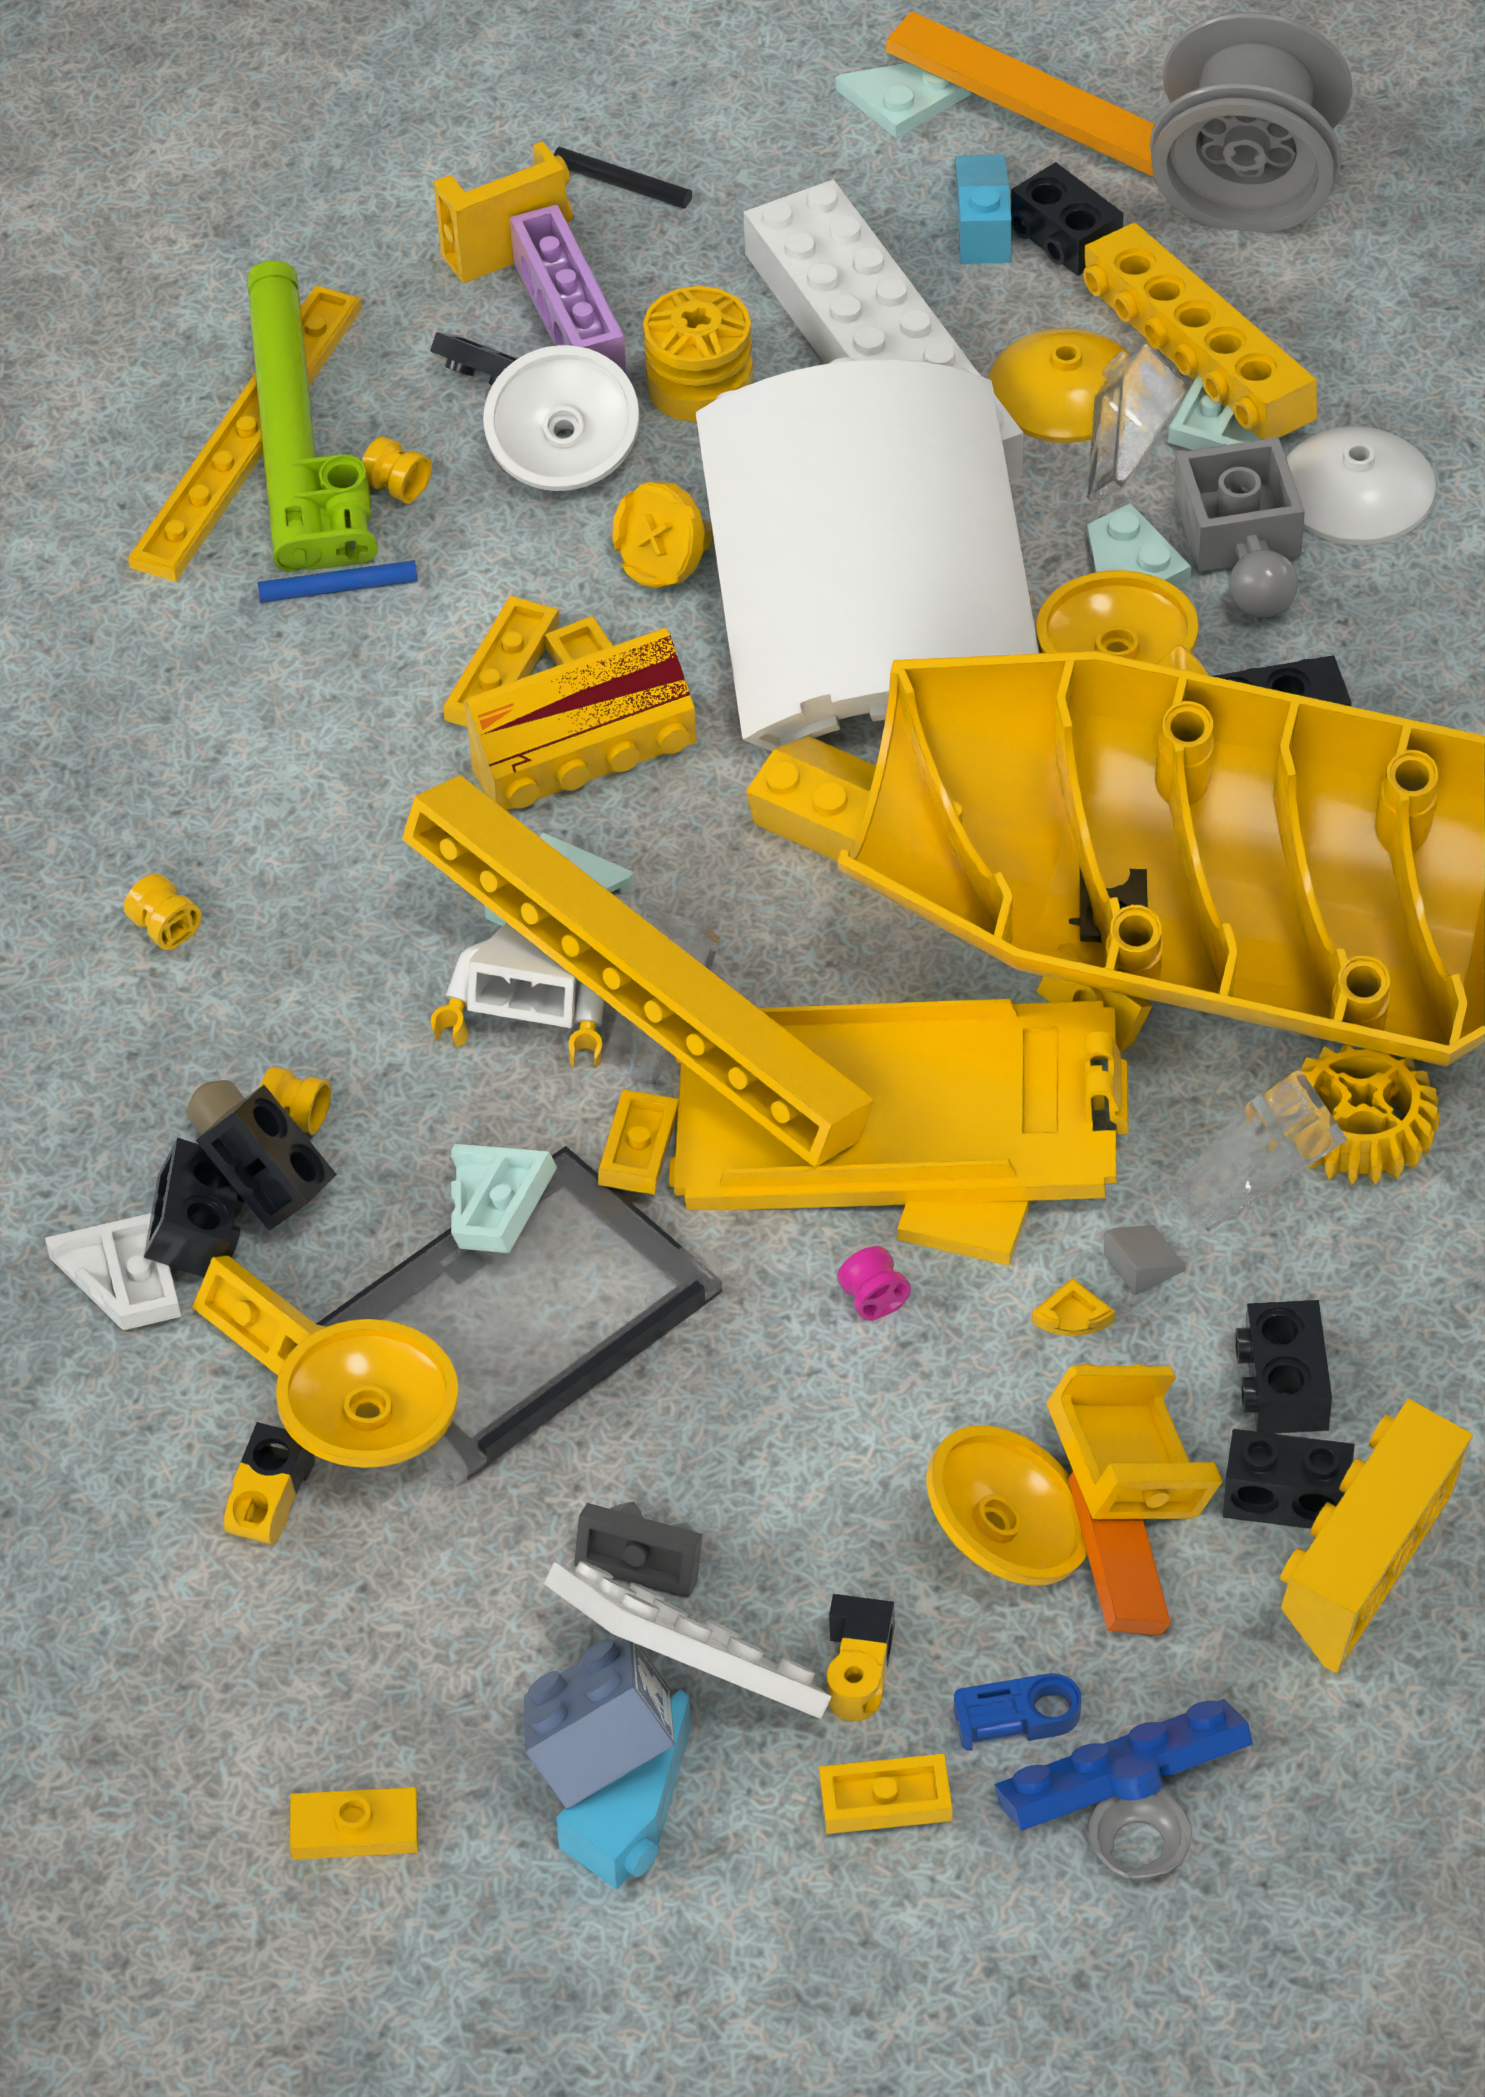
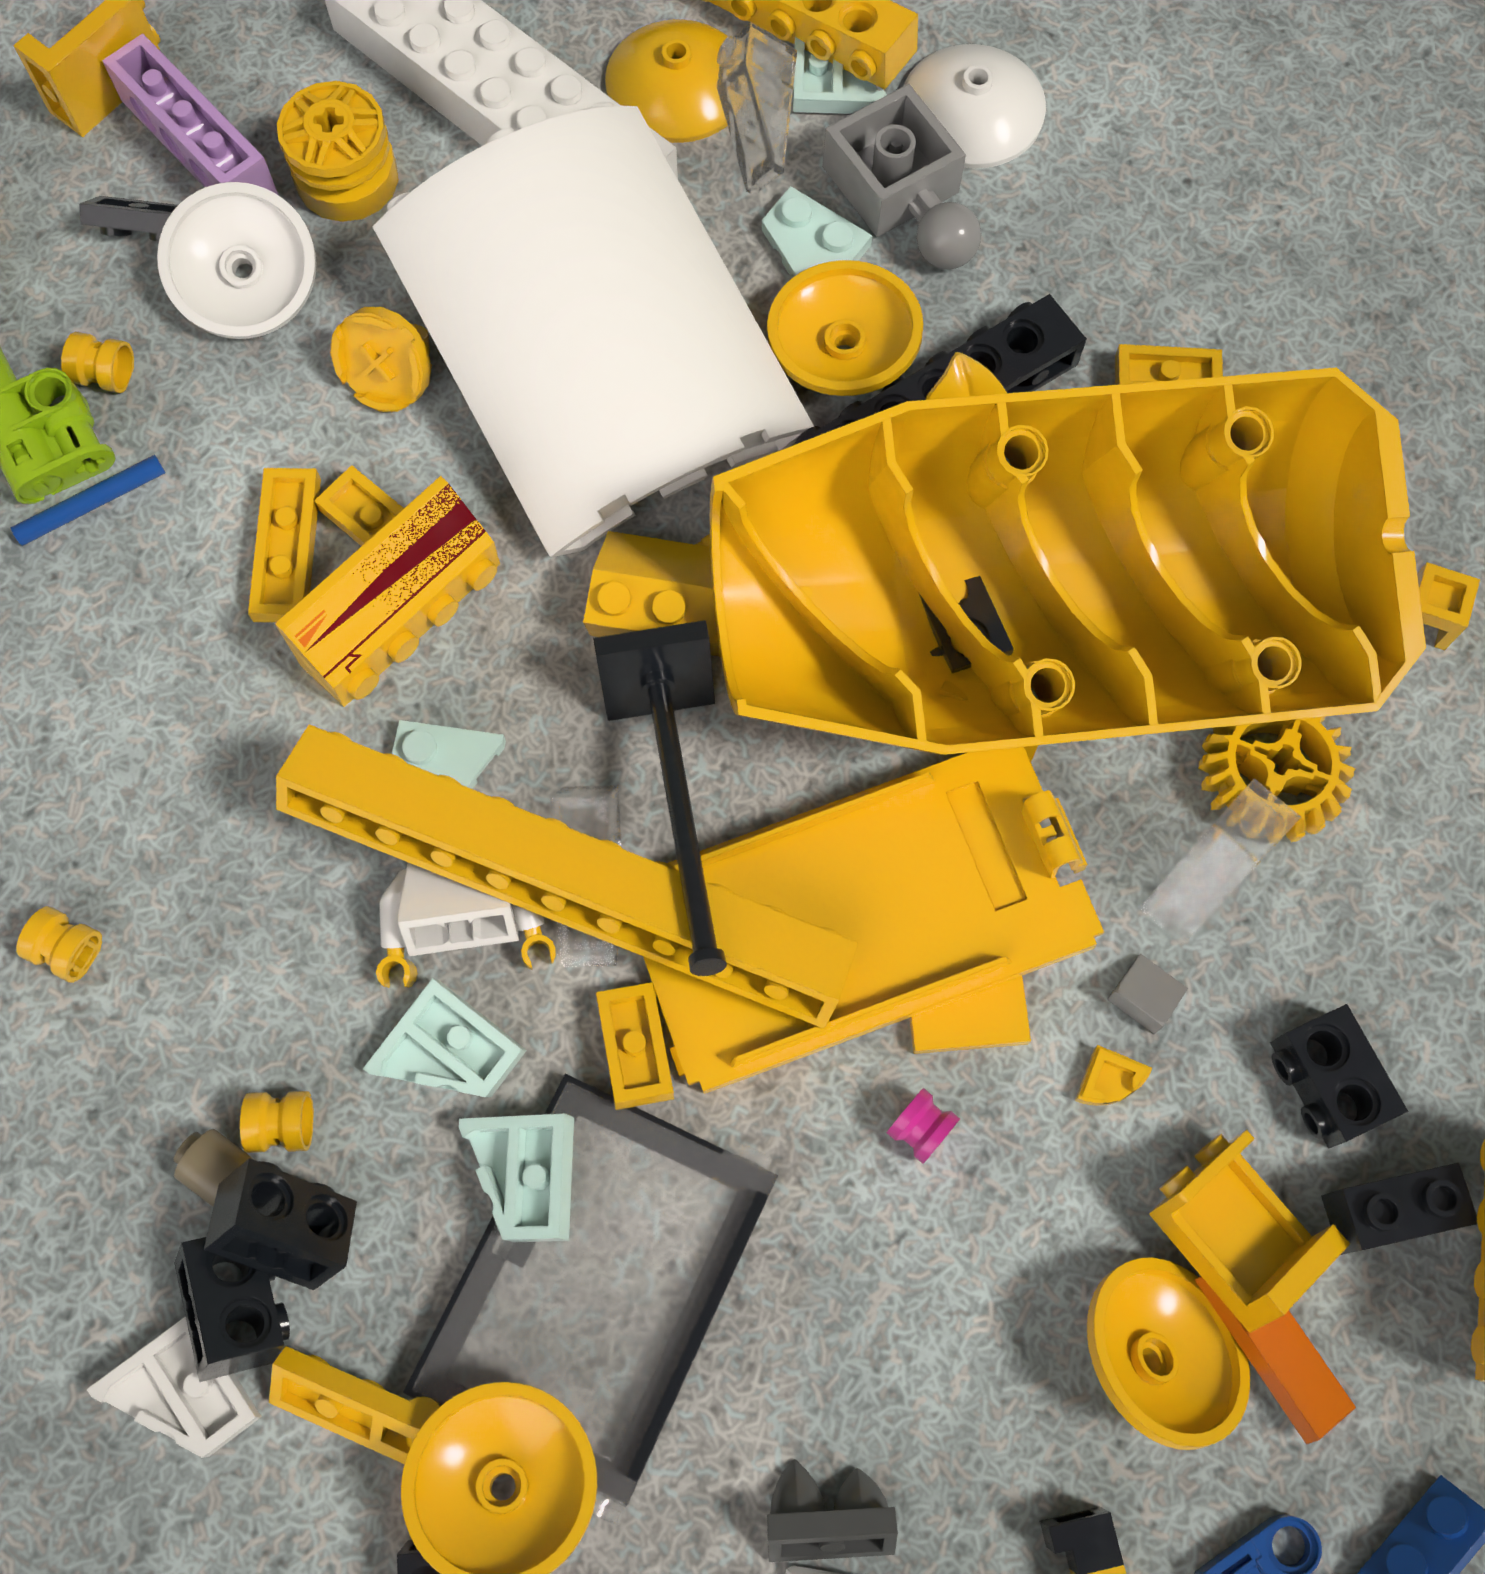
camera: 25 degrees left, 20 degrees up
(467, 1094) = (446, 1046): none -> light aqua wing
(784, 857) = (656, 675): none -> black tile

